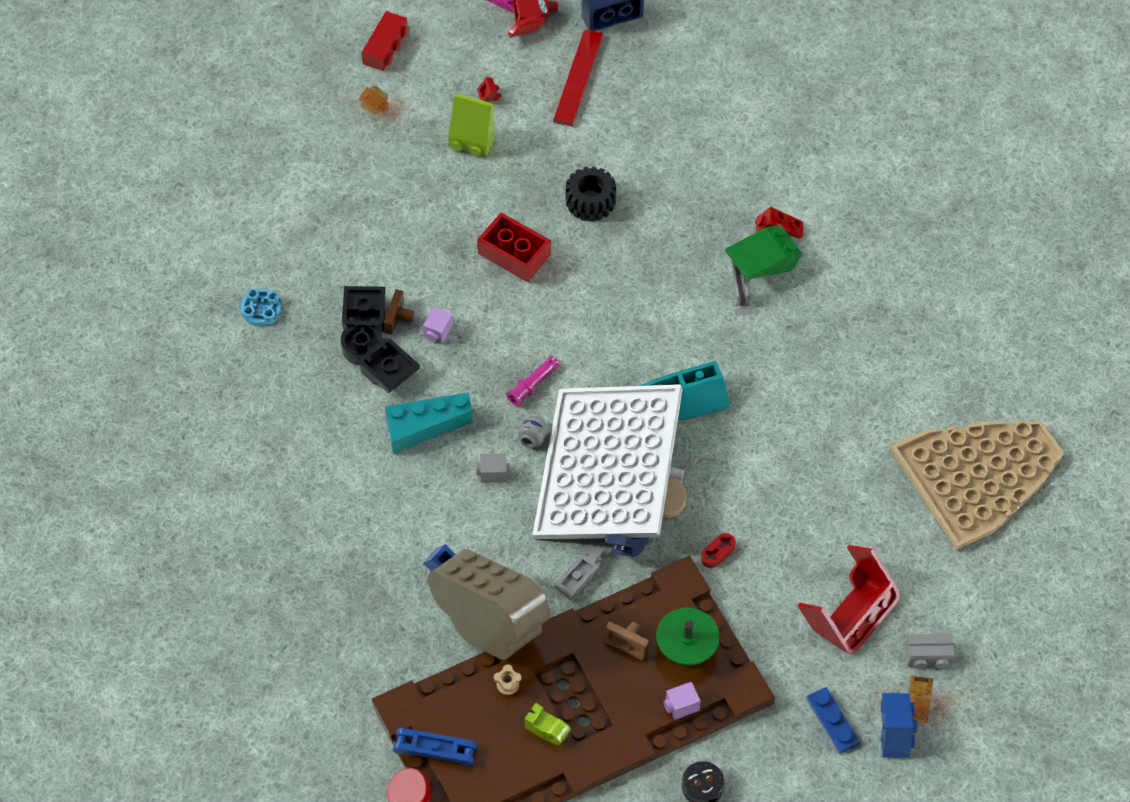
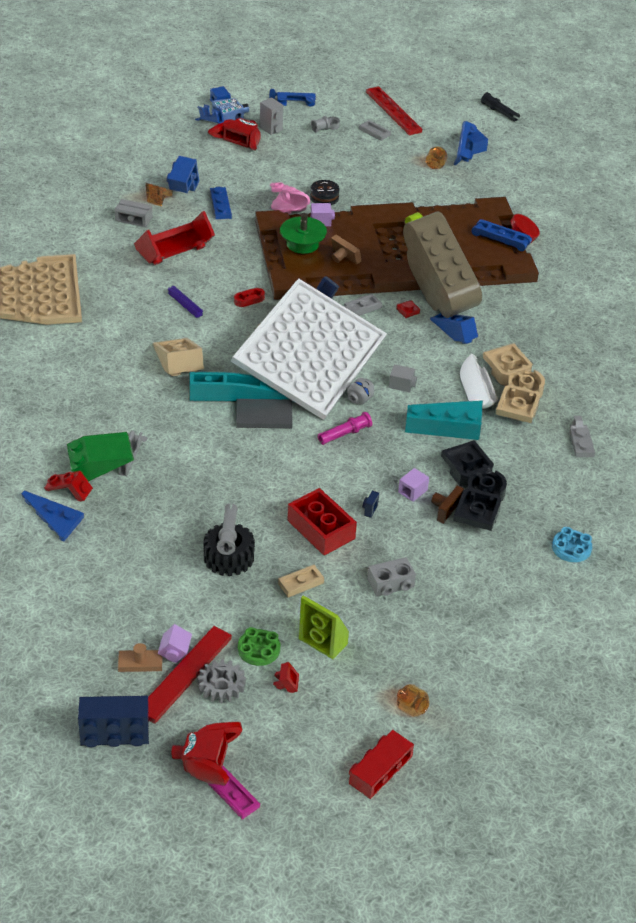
camera: 165 degrees left, 15 degrees down
(273, 449) = (581, 438): none -> light grey hinge
(351, 478) = (522, 387): none -> tan plate
(402, 485) = (477, 382): none -> white brick
(429, 215) = (391, 576): none -> light grey brick
(474, 289) = (371, 503): none -> dark blue plate
(512, 188) = (301, 581): none -> tan plate
(525, 118) = (259, 646): none -> bright green tile
(546, 73) = (221, 681): none -> light grey gear
(592, 178) = (228, 534): none -> light grey pin
(597, 89) = (175, 643): none -> lavender brick
(621, 76) = (139, 660): none -> medium nougat tile
(627, 372) = (264, 413): none -> dark grey tile
(742, 732) = (289, 198): none -> bright pink piece
(756, 426) = (179, 356): none -> tan slope
(768, 192) = (57, 516): none -> blue wing
(790, 519) = (187, 303): none -> dark purple axle

